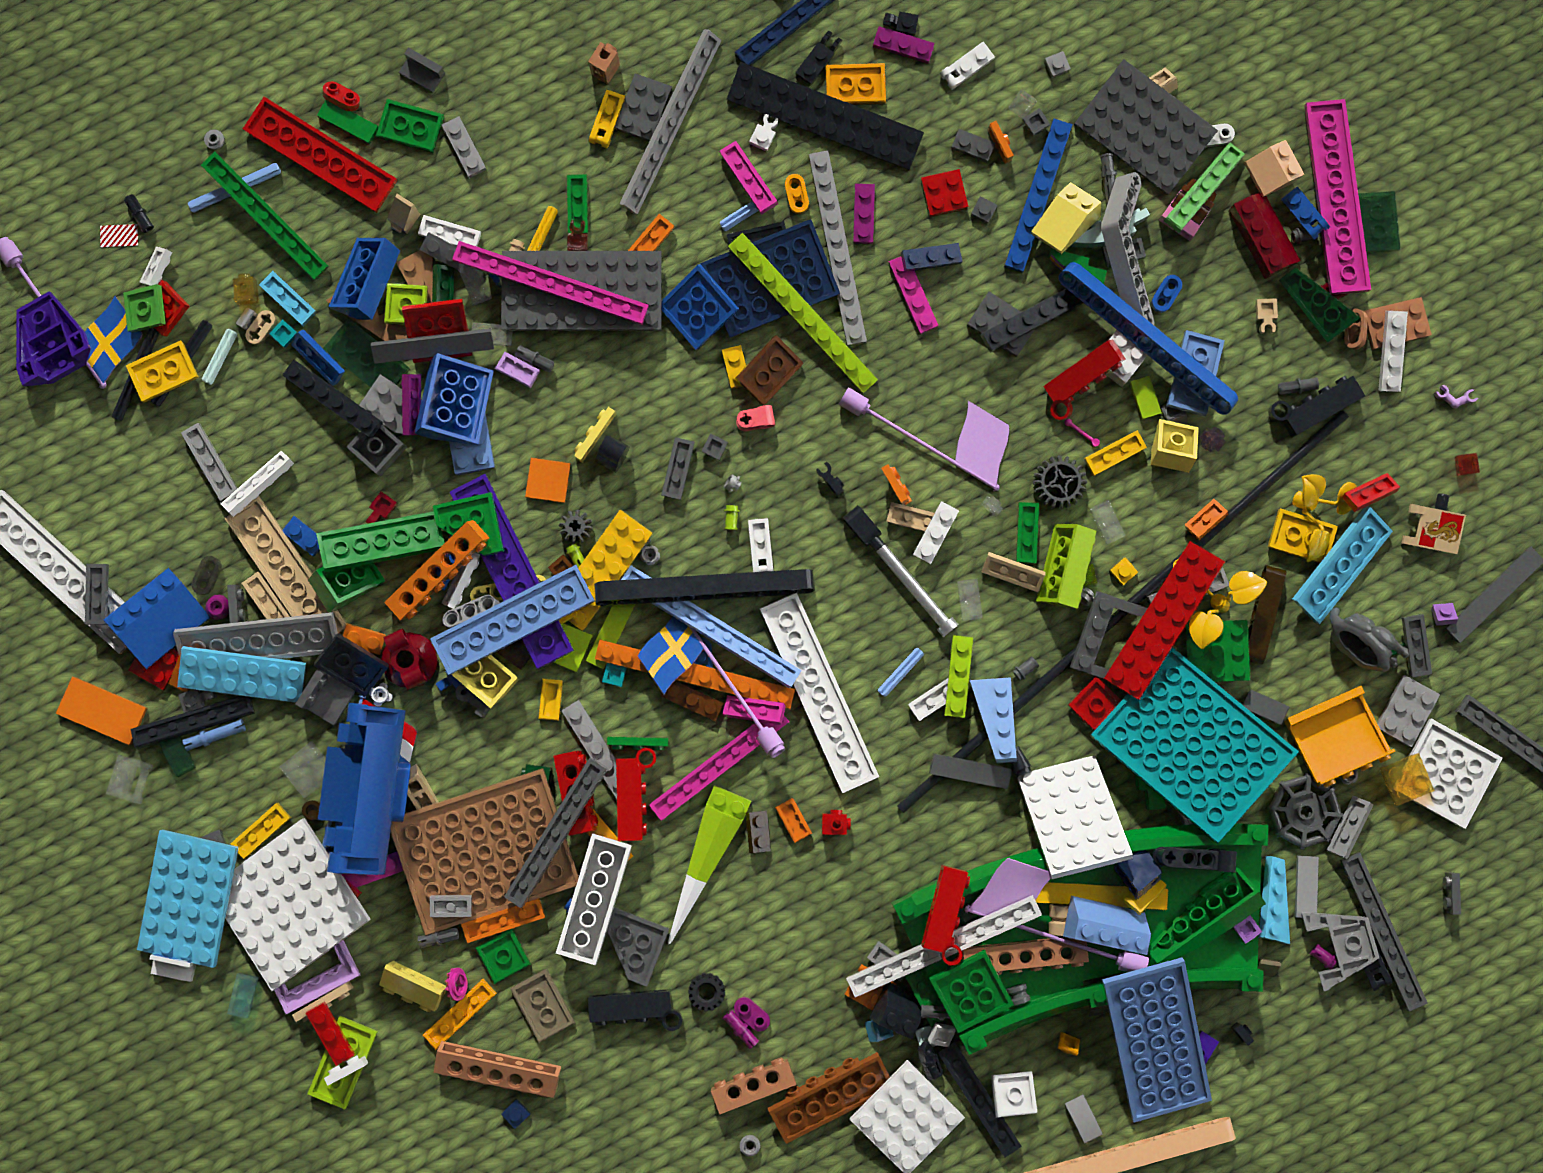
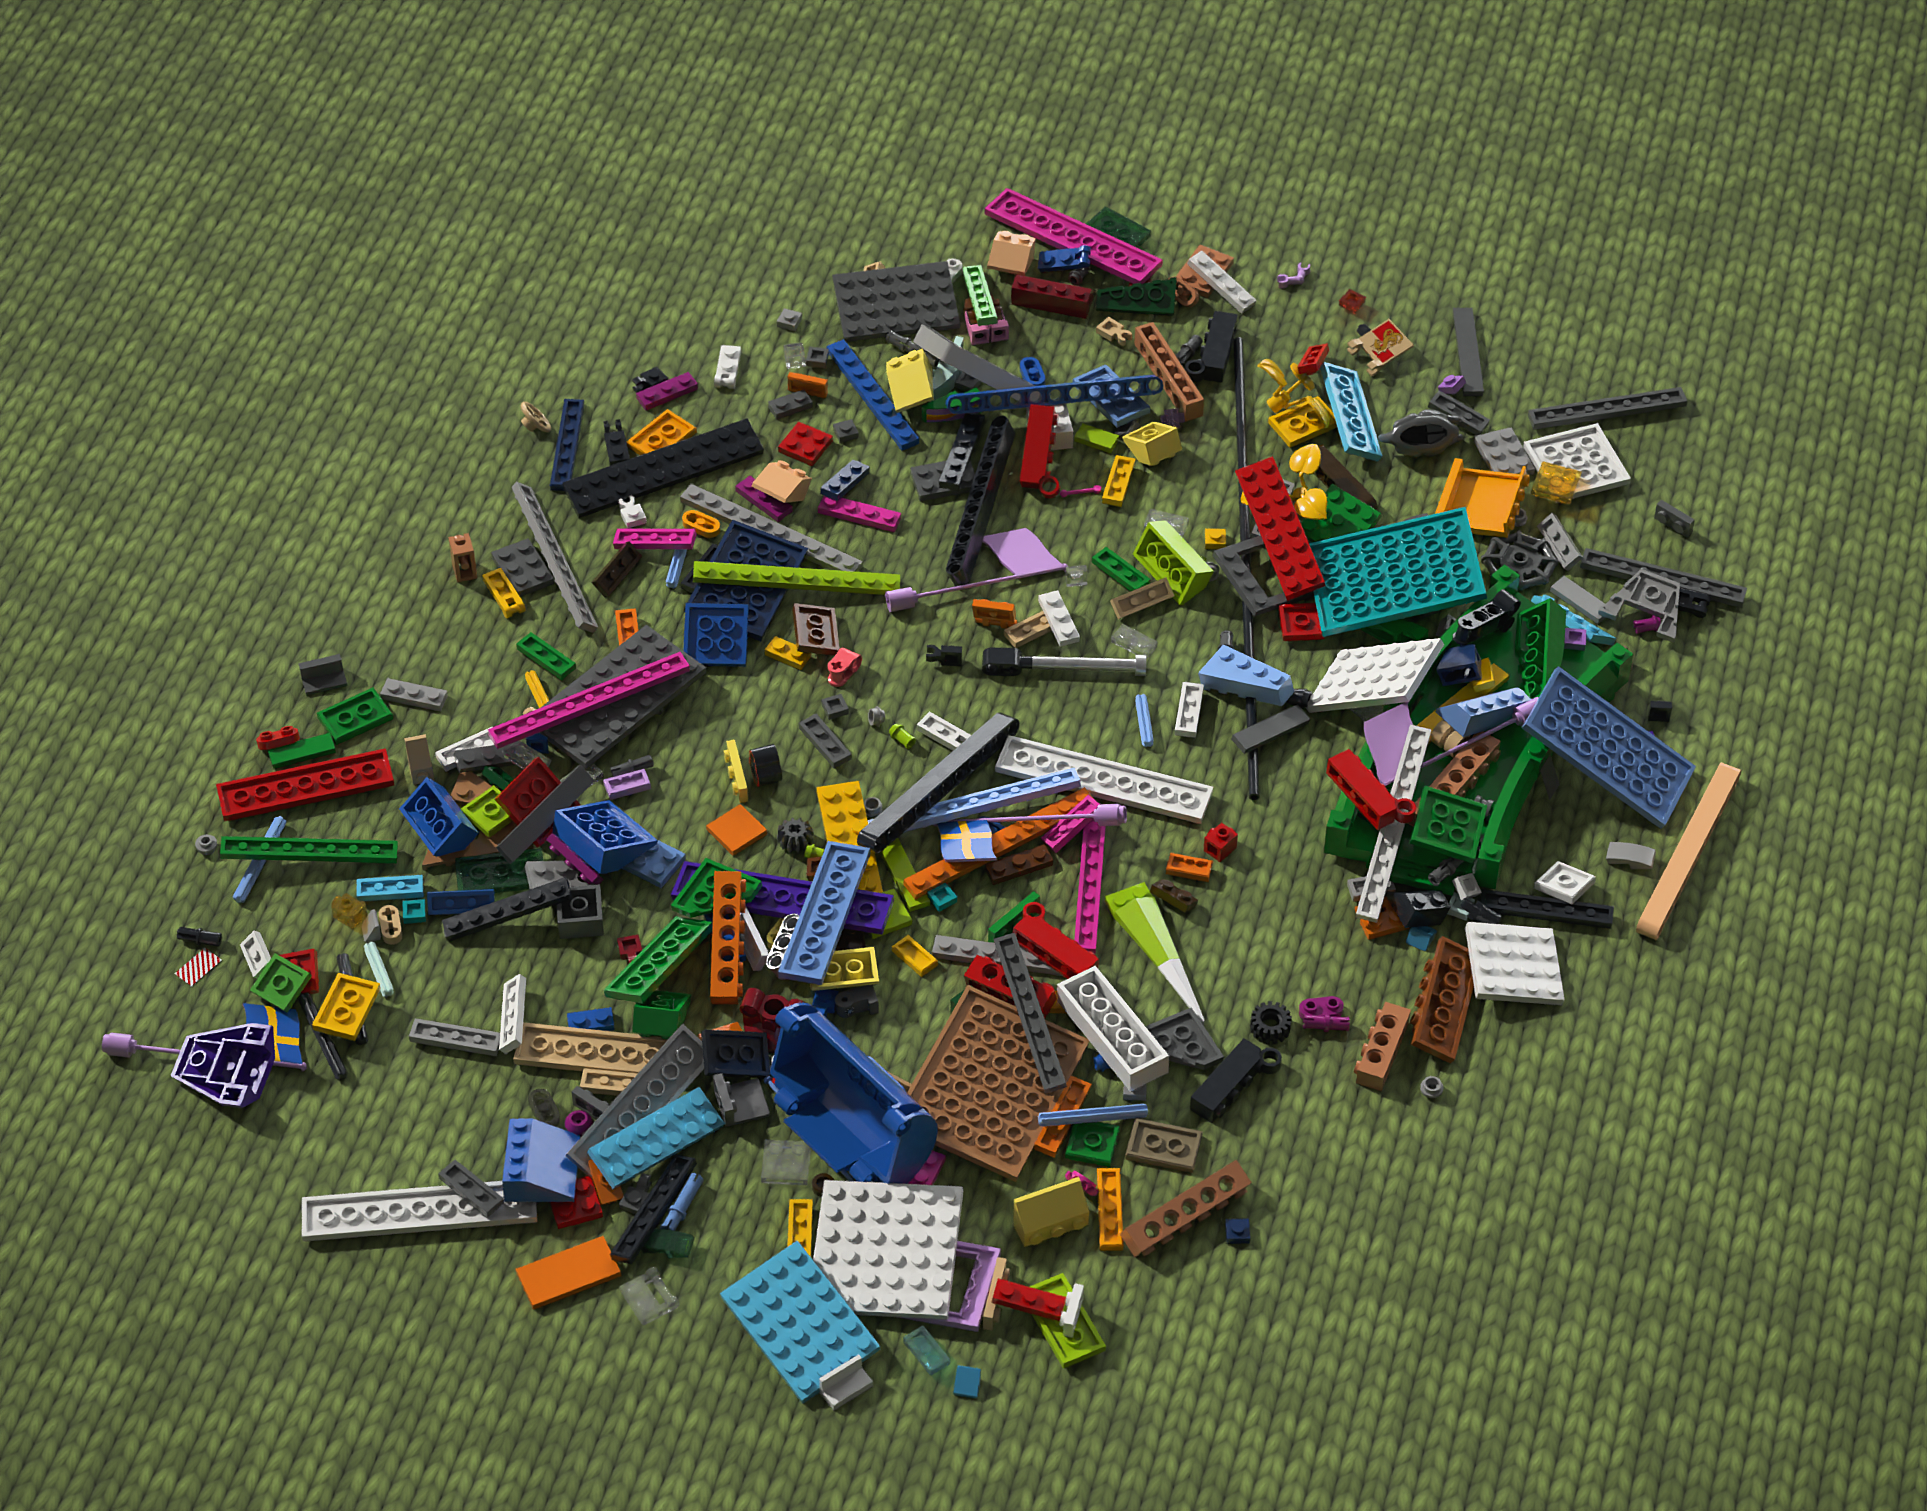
camera: 45 degrees left, 35 degrees down
(243, 1041) = (967, 1381): none -> dark azure slope
(438, 938) = (1028, 1173): dark grey axle -> none
(450, 905) = (1012, 1132): light grey plate -> none
(518, 942) = (1092, 1115): none -> light blue axle
(576, 240) = (572, 670): clear red plate -> none
(699, 176) = (616, 569): none -> dark brown plate
(881, 219) = (783, 482): none -> light nougat slope
(958, 676) = (1187, 682): lime plate -> none
(1005, 365) = (980, 501): none -> black beam
(1068, 1044) = (1559, 824): light orange slope -> none
(1076, 476) = (1104, 525): dark grey gear -> none
(1206, 519) = (1228, 462): orange plate -> none
(1258, 395) = (1168, 368): none -> nougat brick

